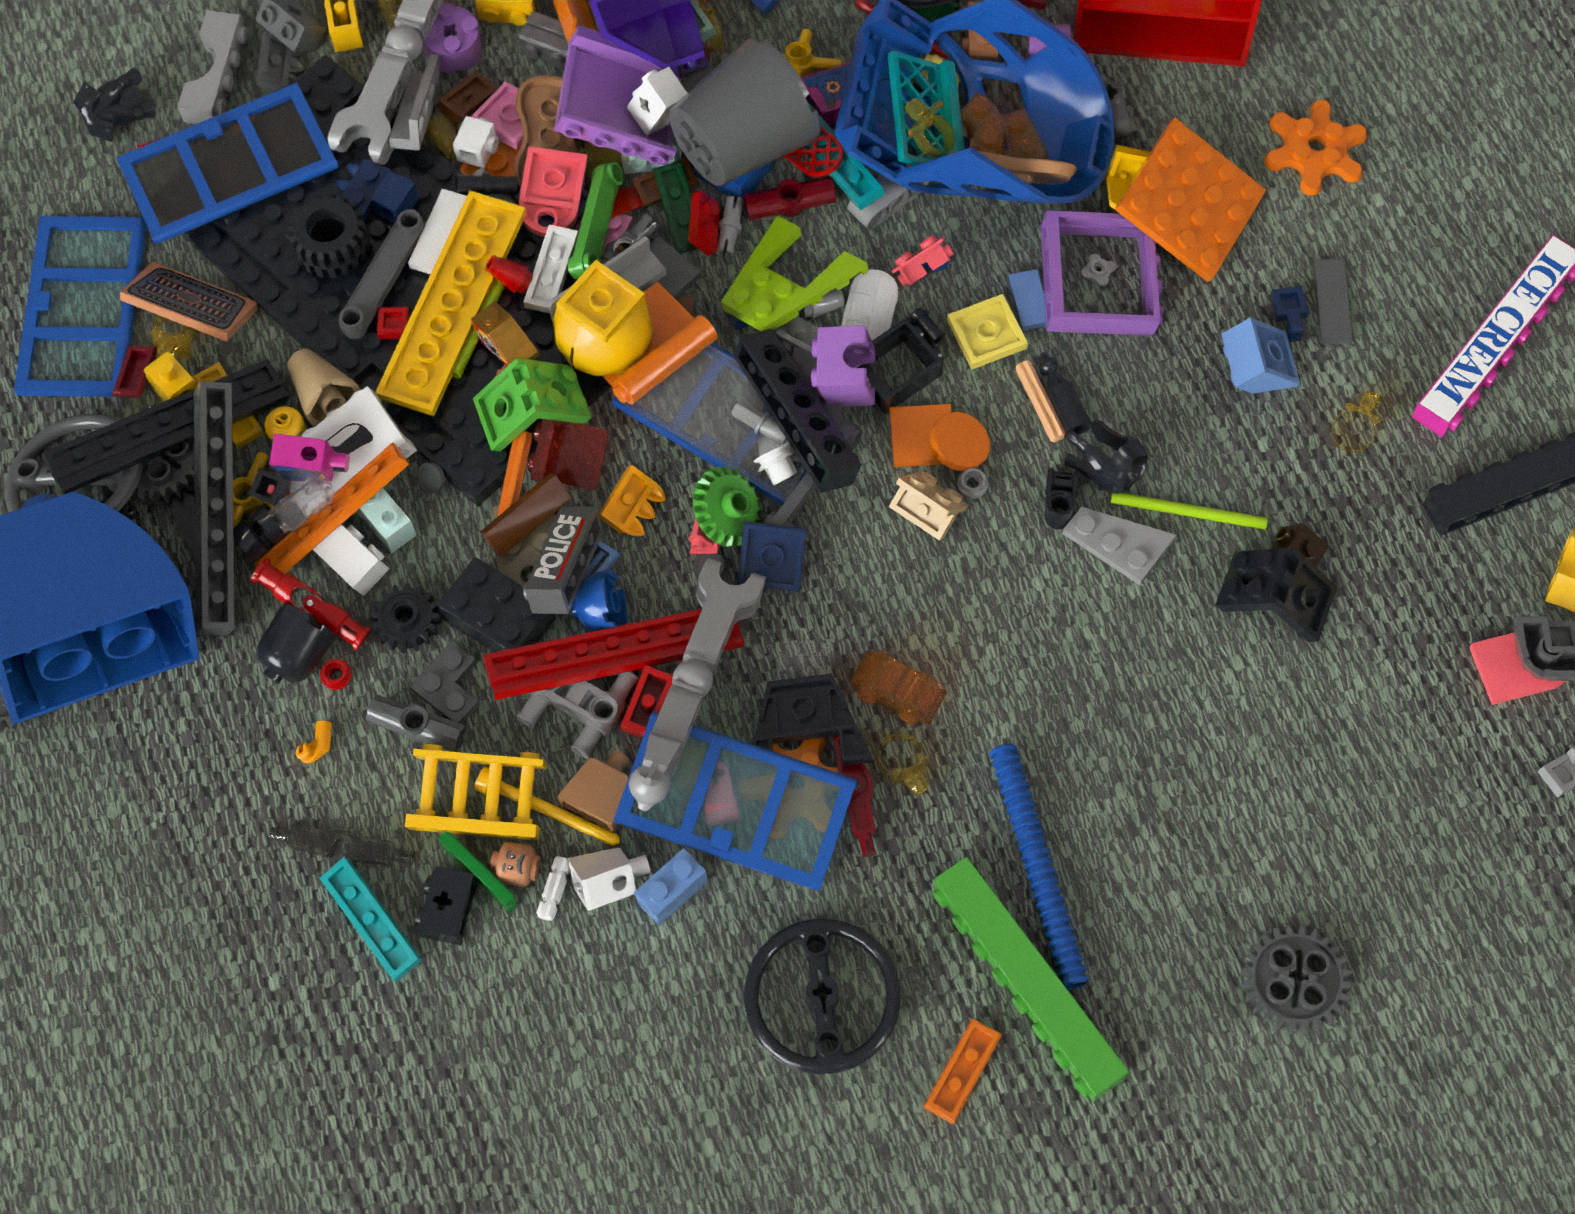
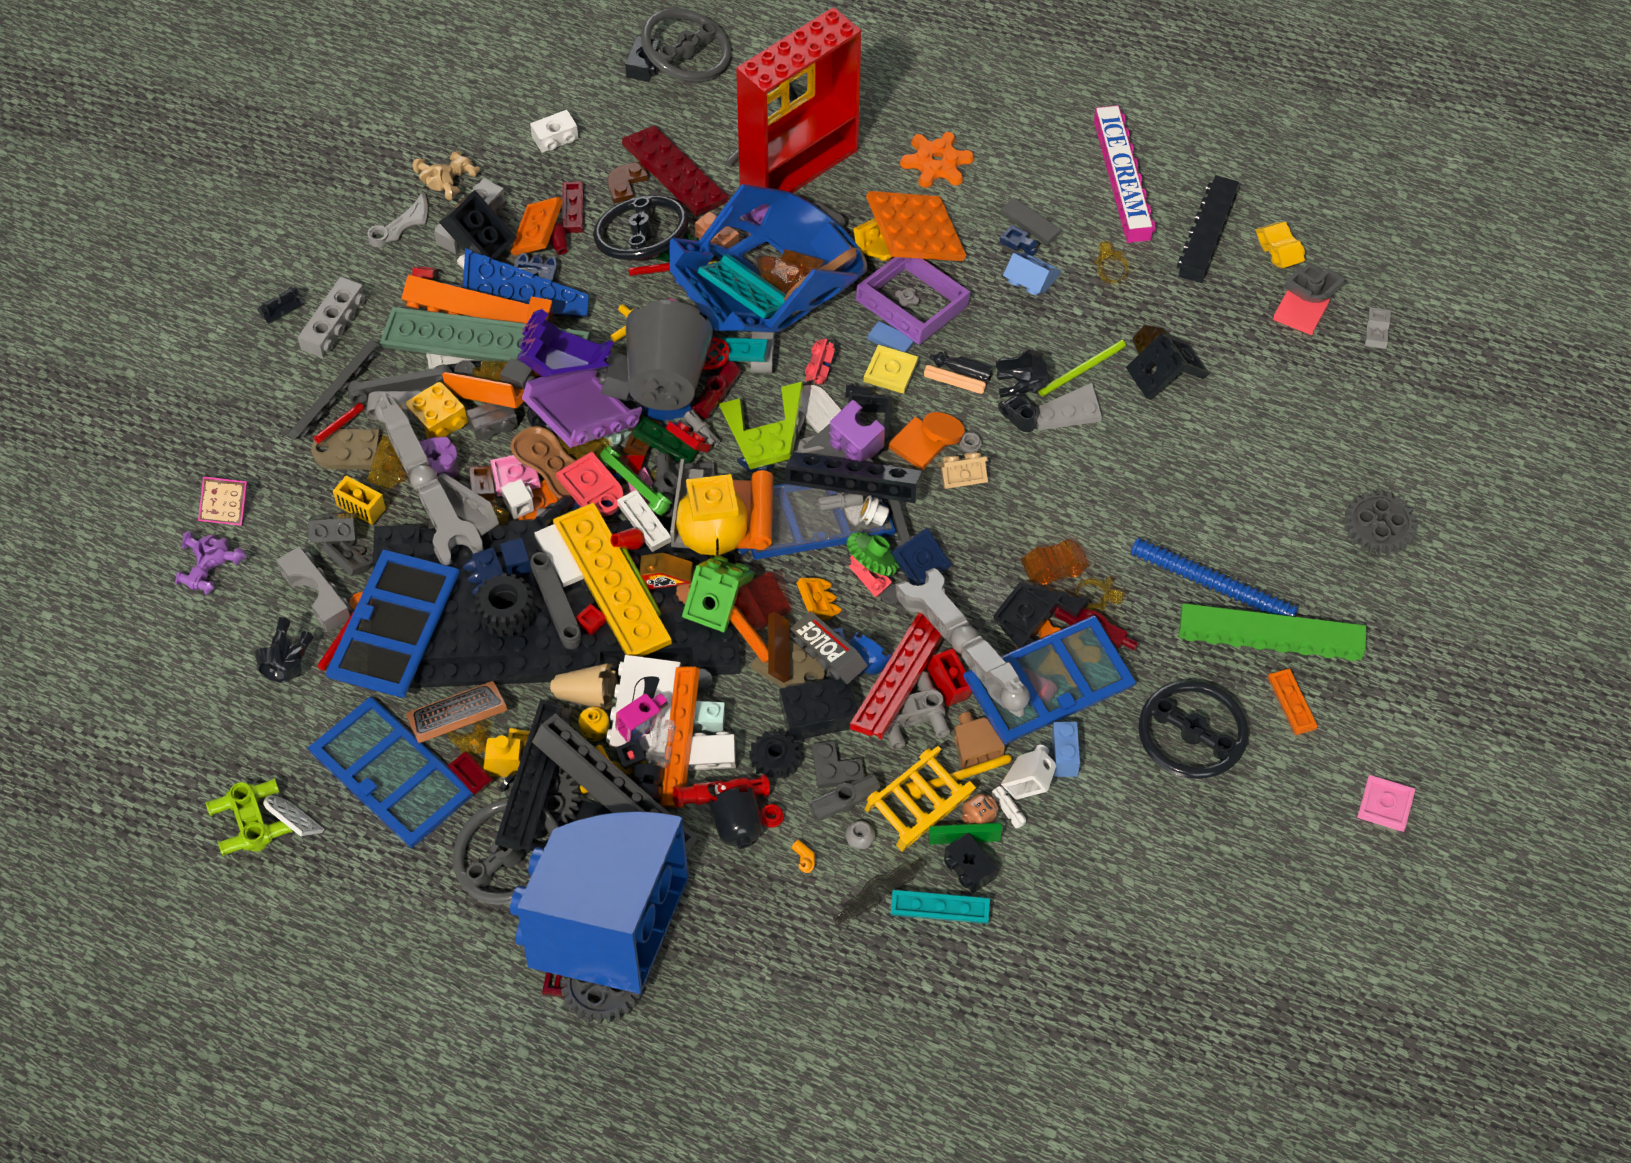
camera: 50 degrees left, 10 degrees down
(394, 782) = (860, 841): none -> light grey plate
(655, 99) = (608, 388): white brick -> none
(924, 118) = (755, 287): clear yellow piece -> none

